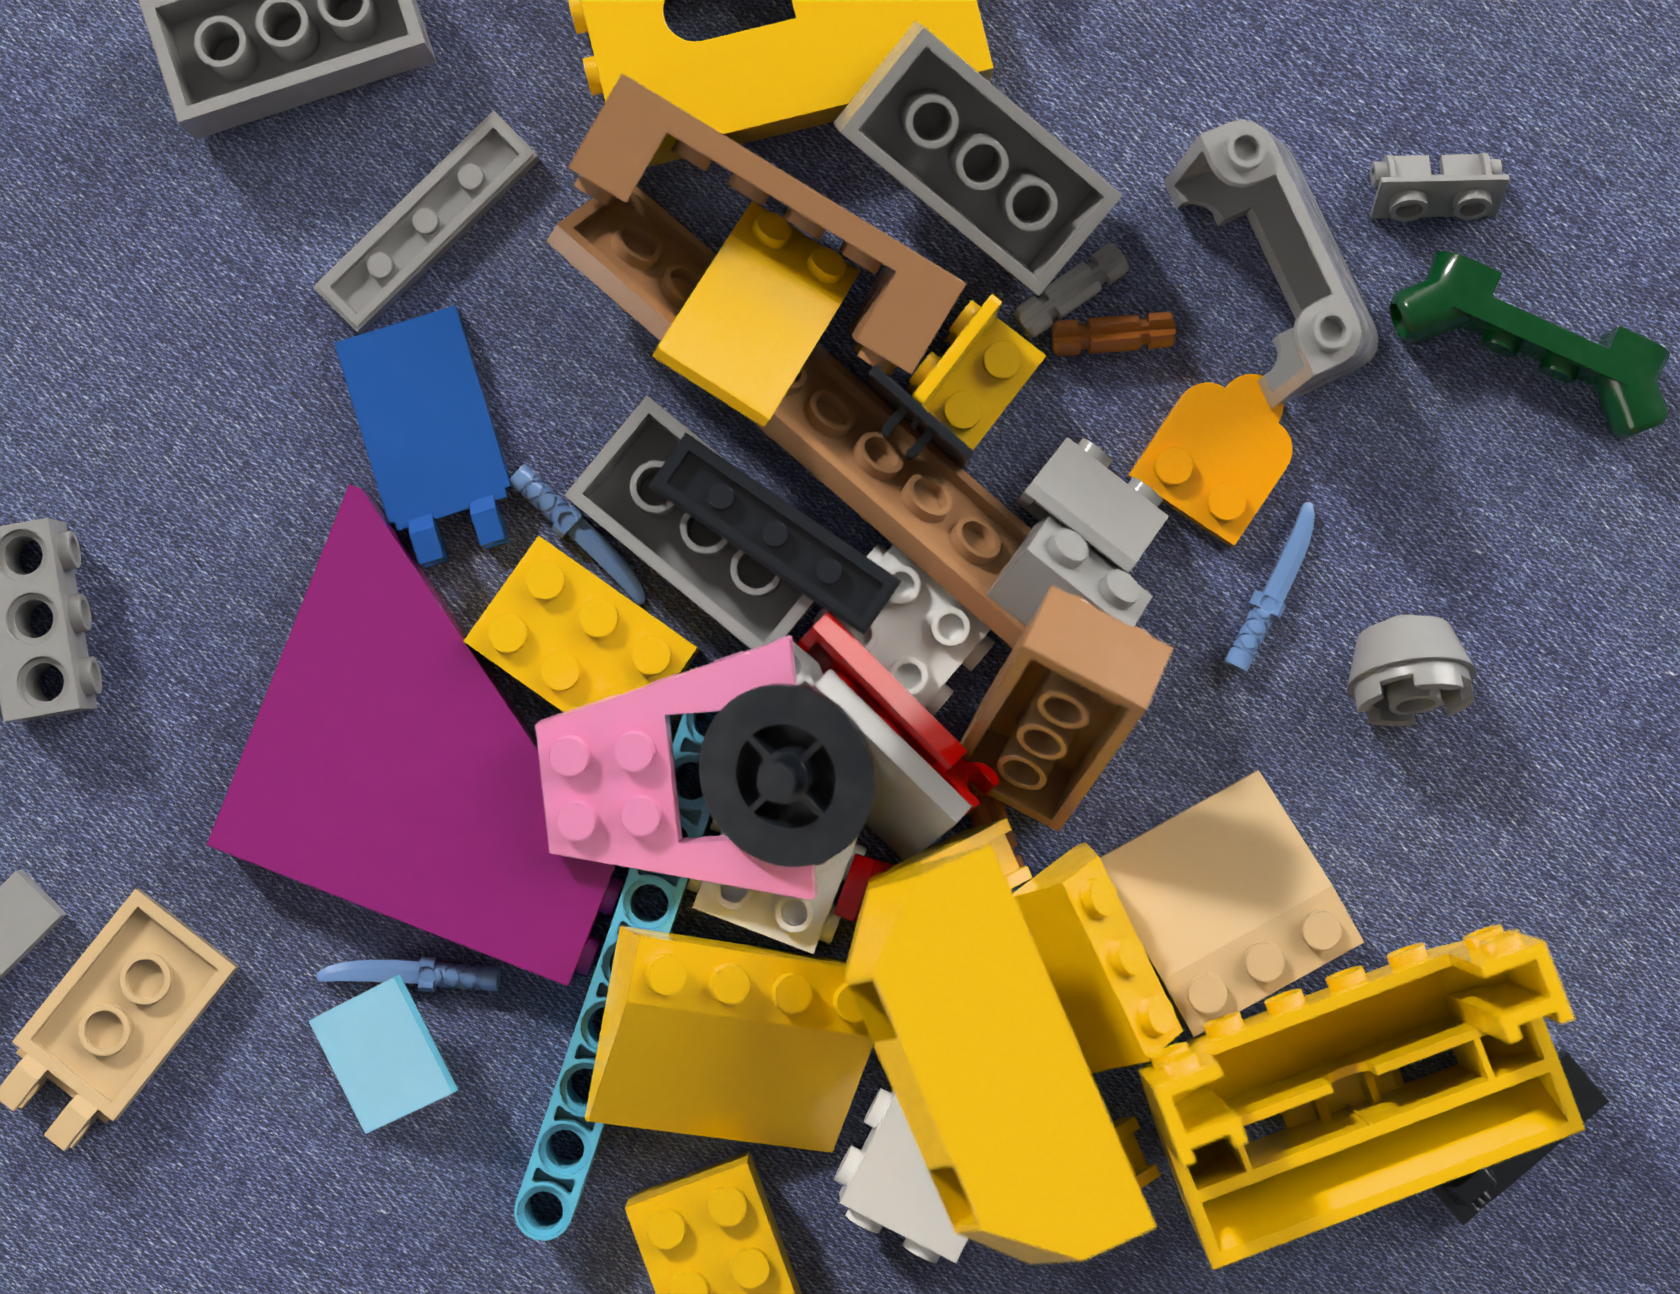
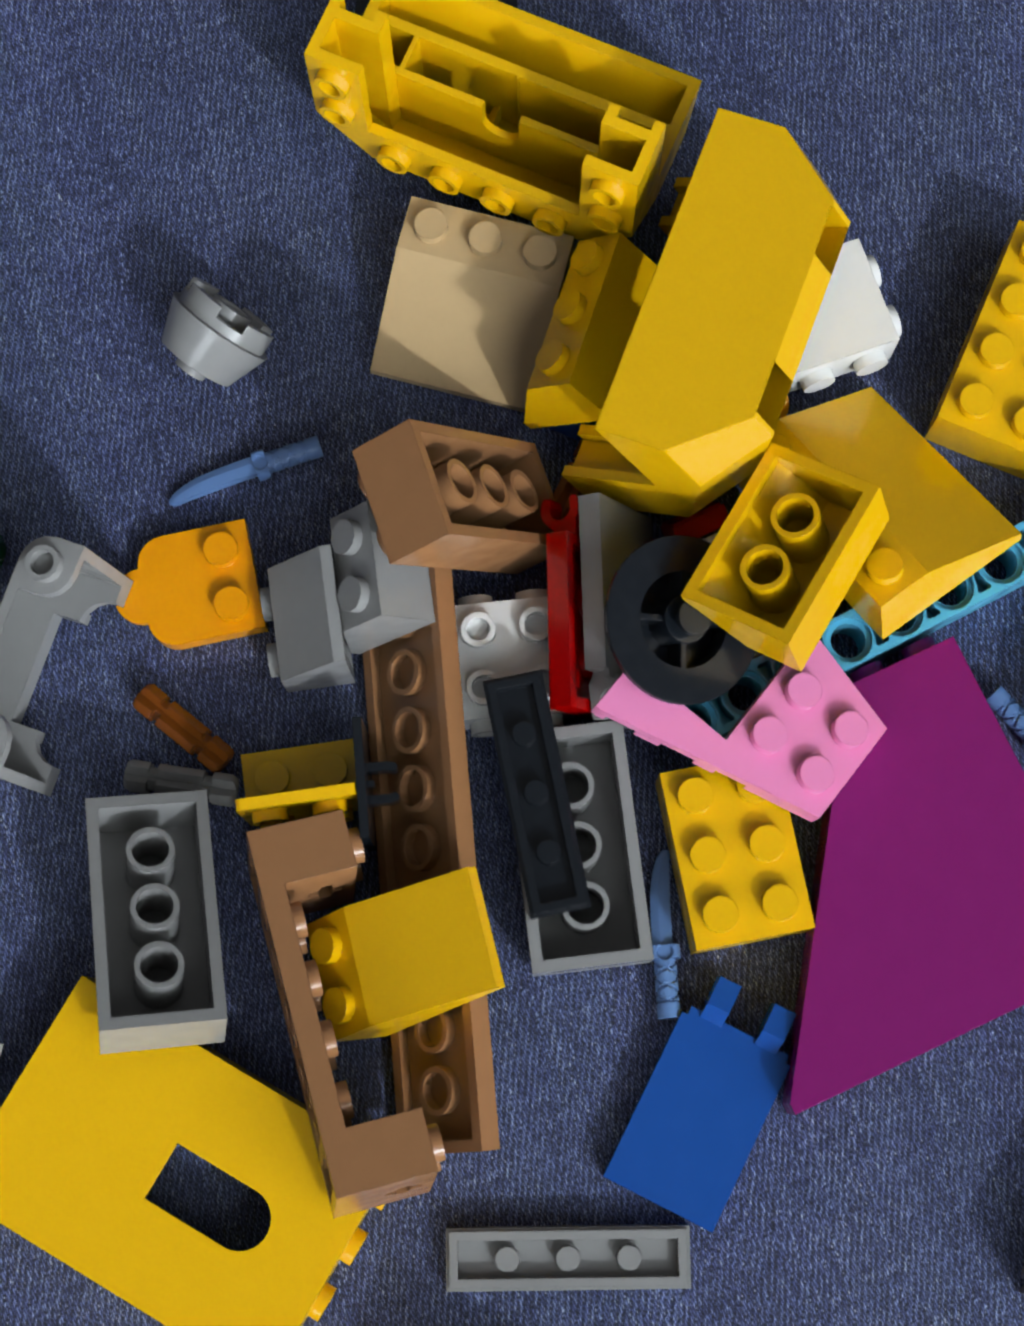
camera: 130 degrees left, 10 degrees down
(749, 901) = (787, 554): none -> yellow slope

